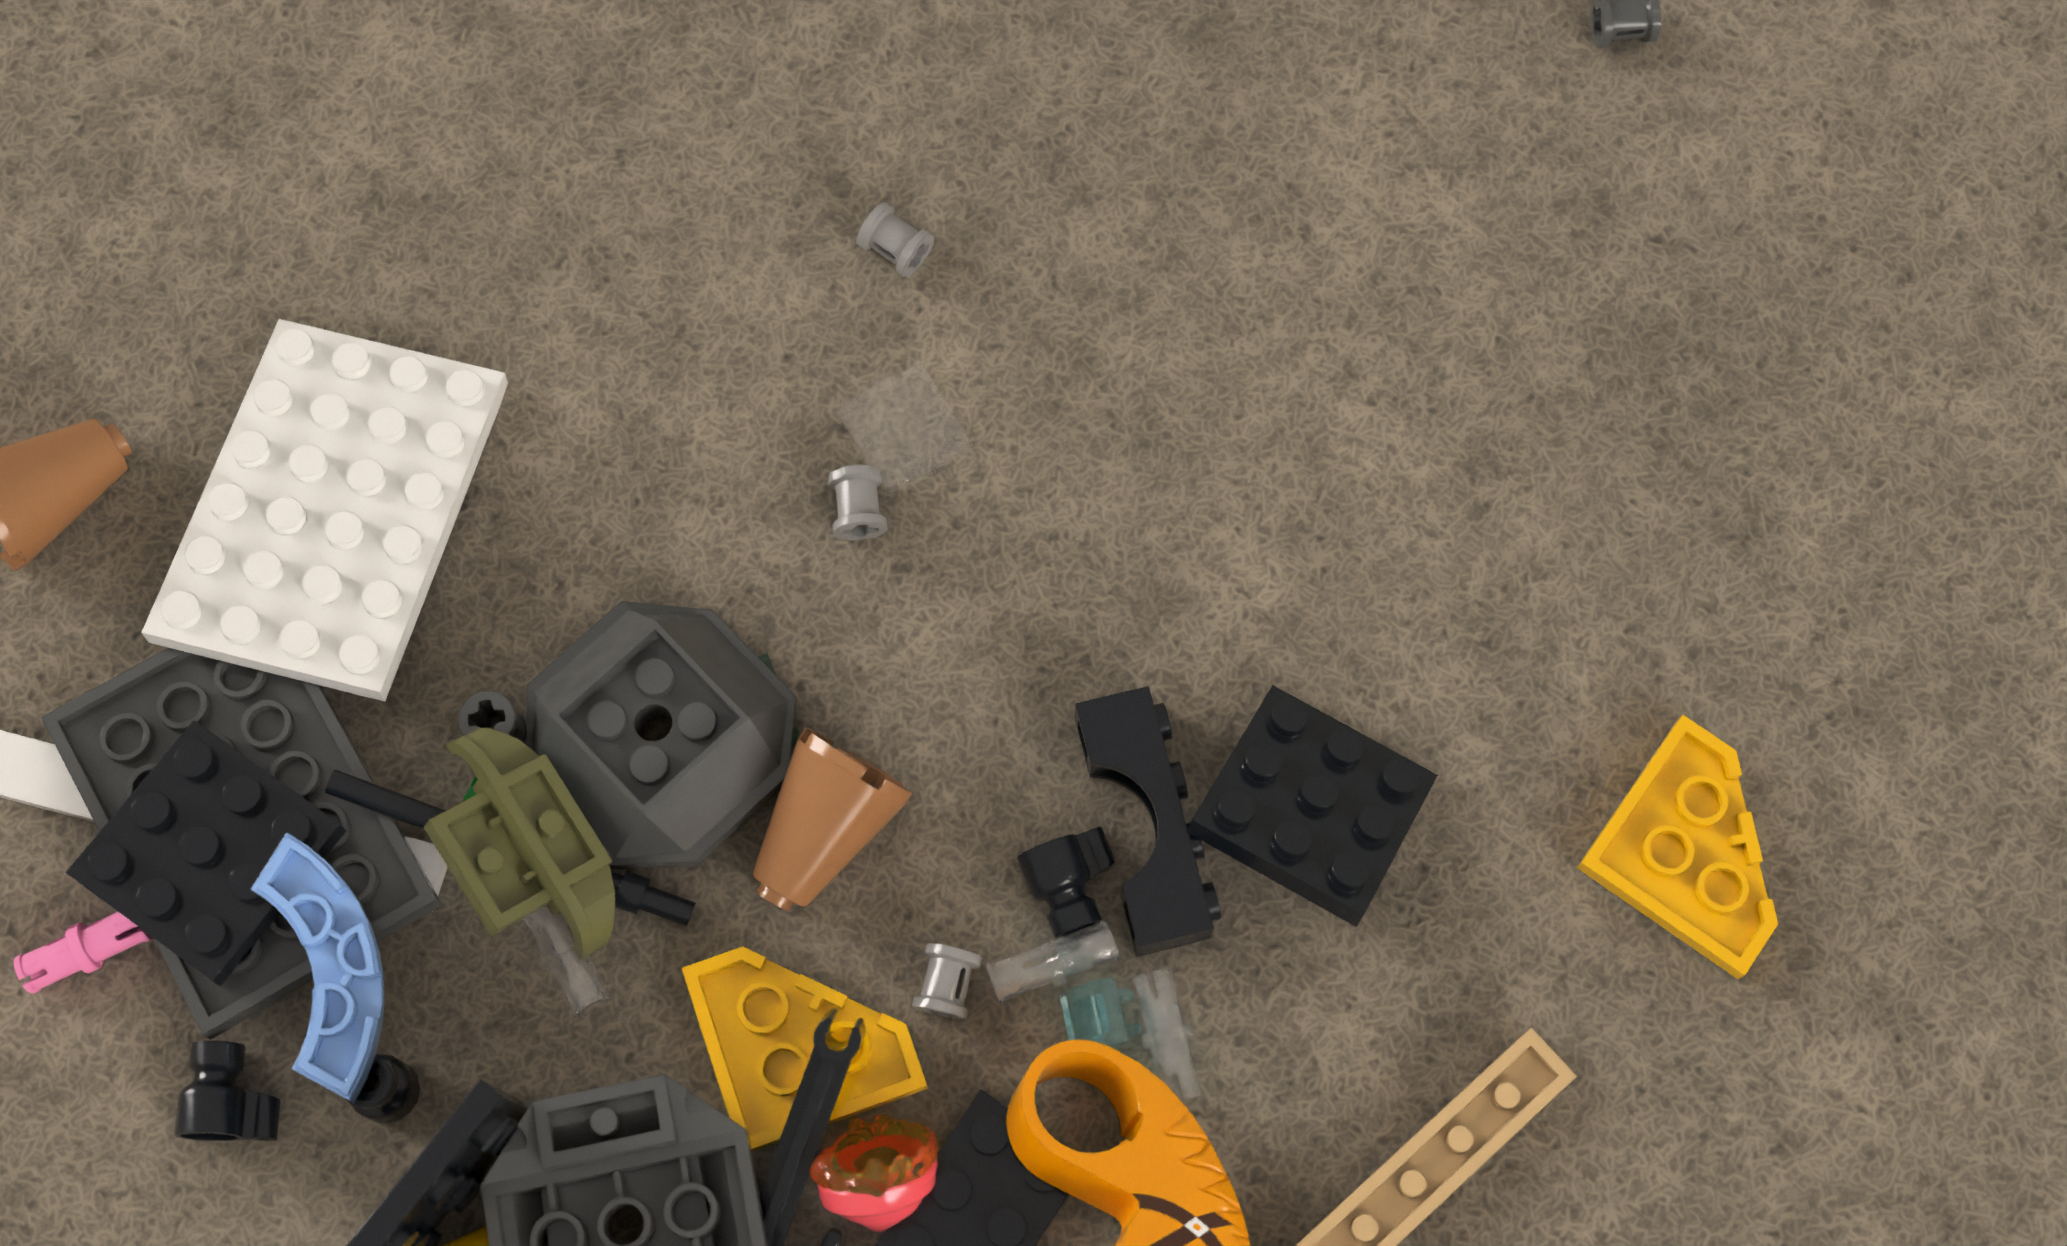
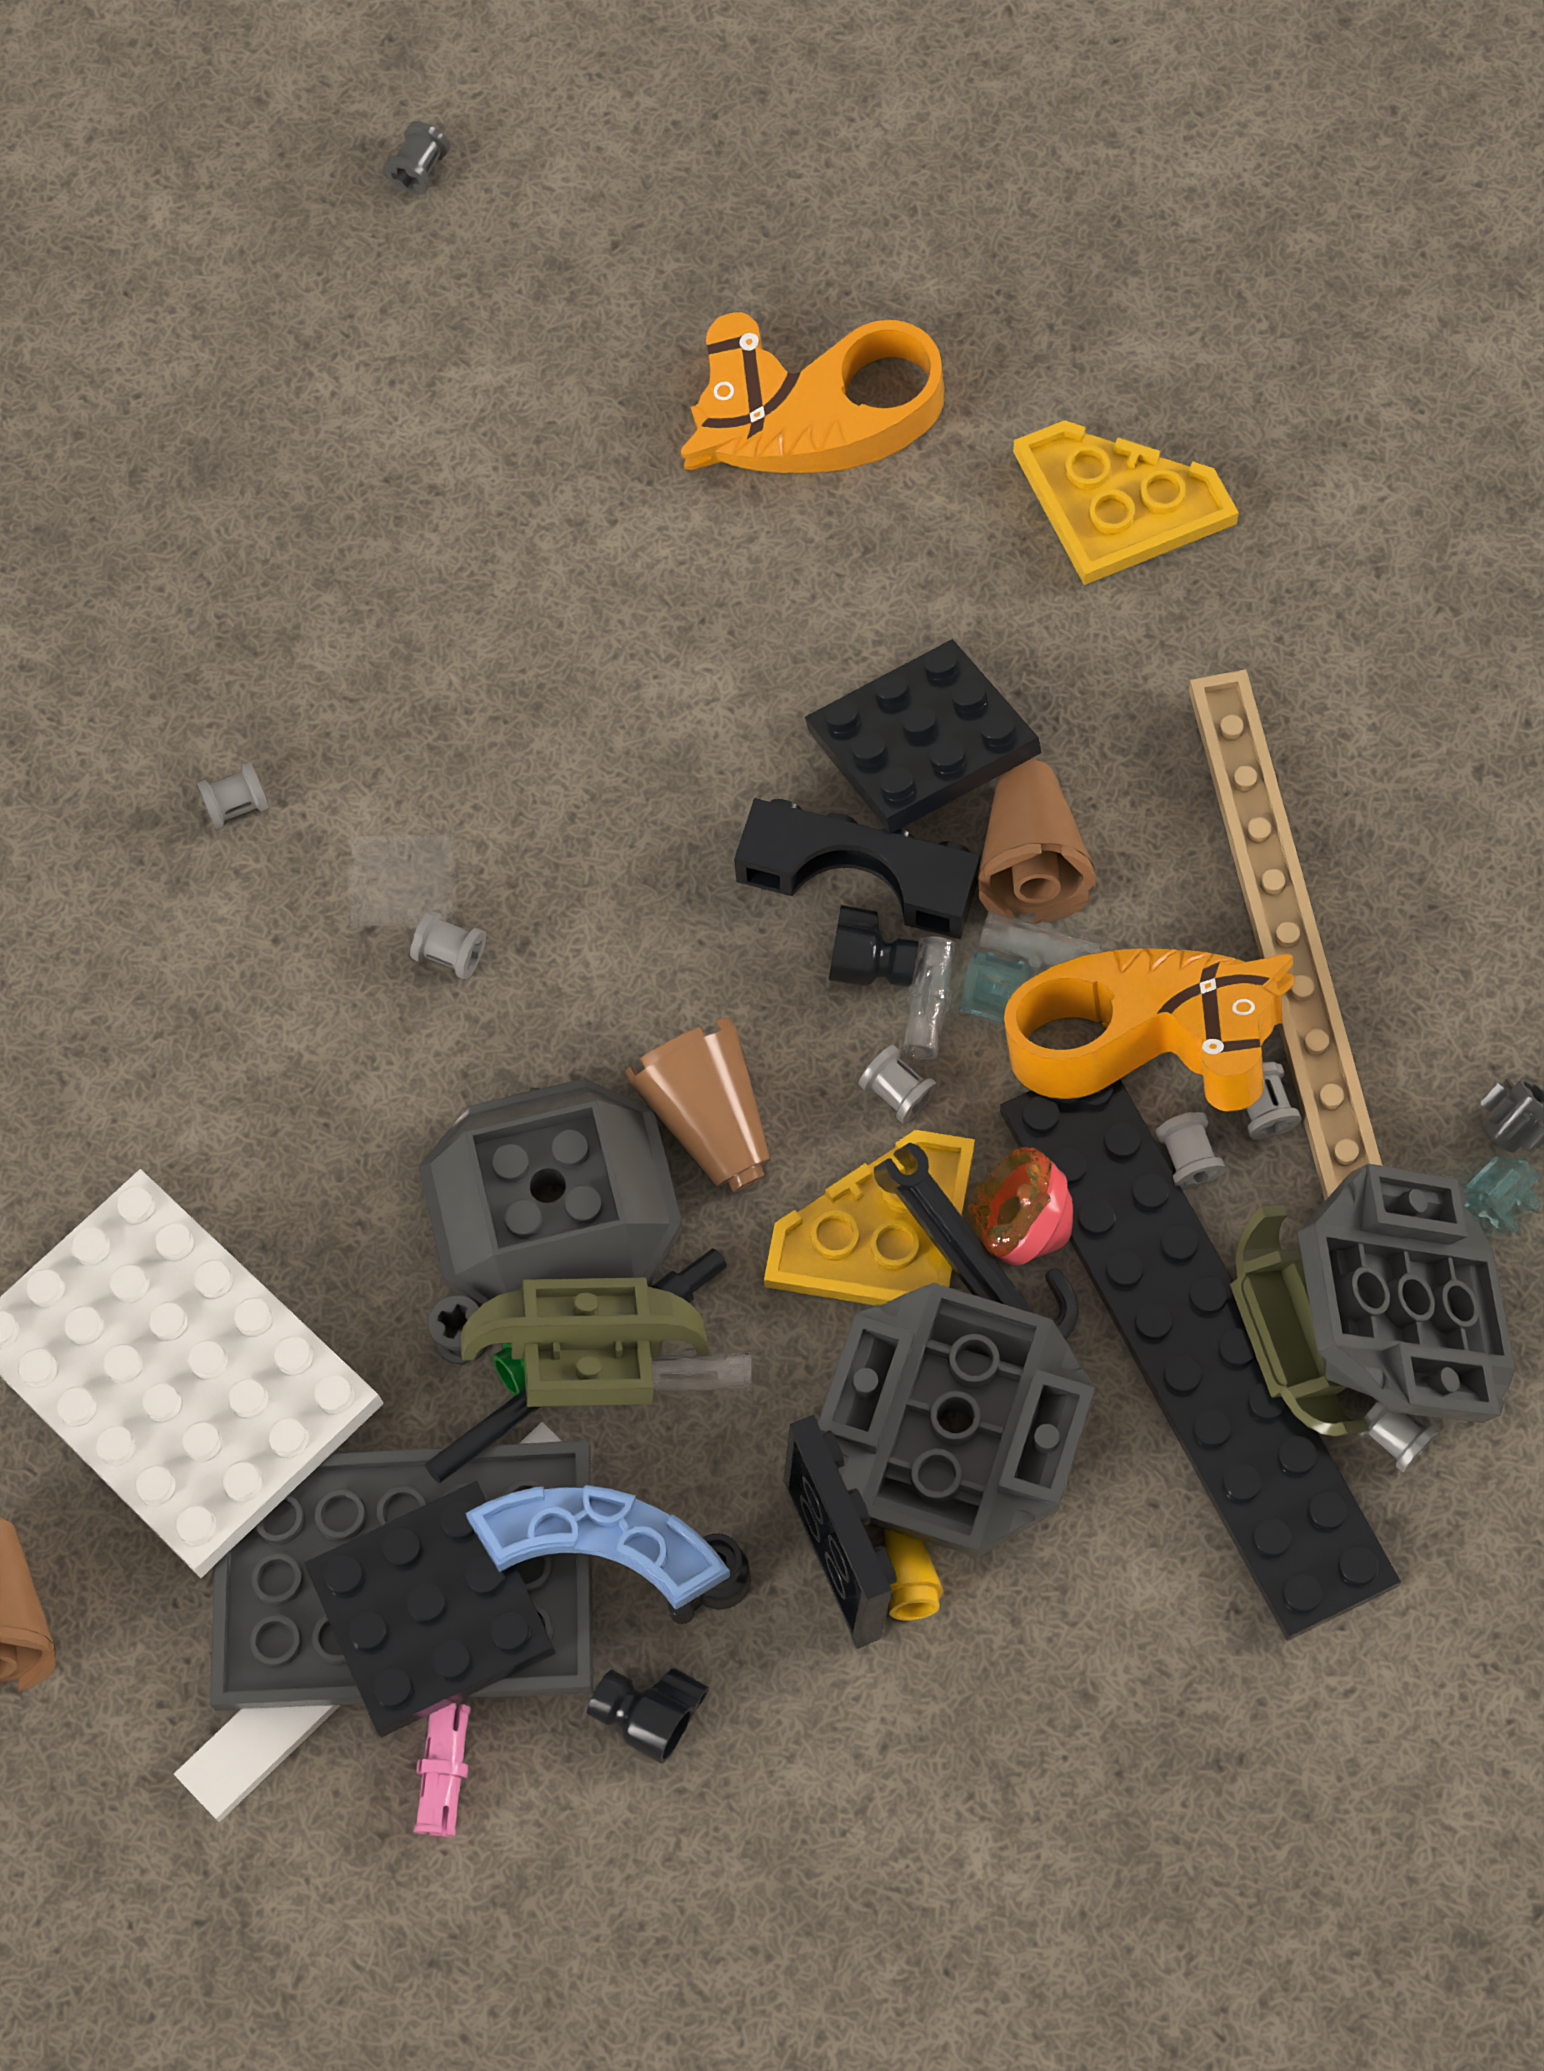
camera: 55 degrees left, 5 degrees down
(1259, 972) = (1033, 849): none -> medium nougat cone
(1576, 509) = (803, 421): none -> light orange animal

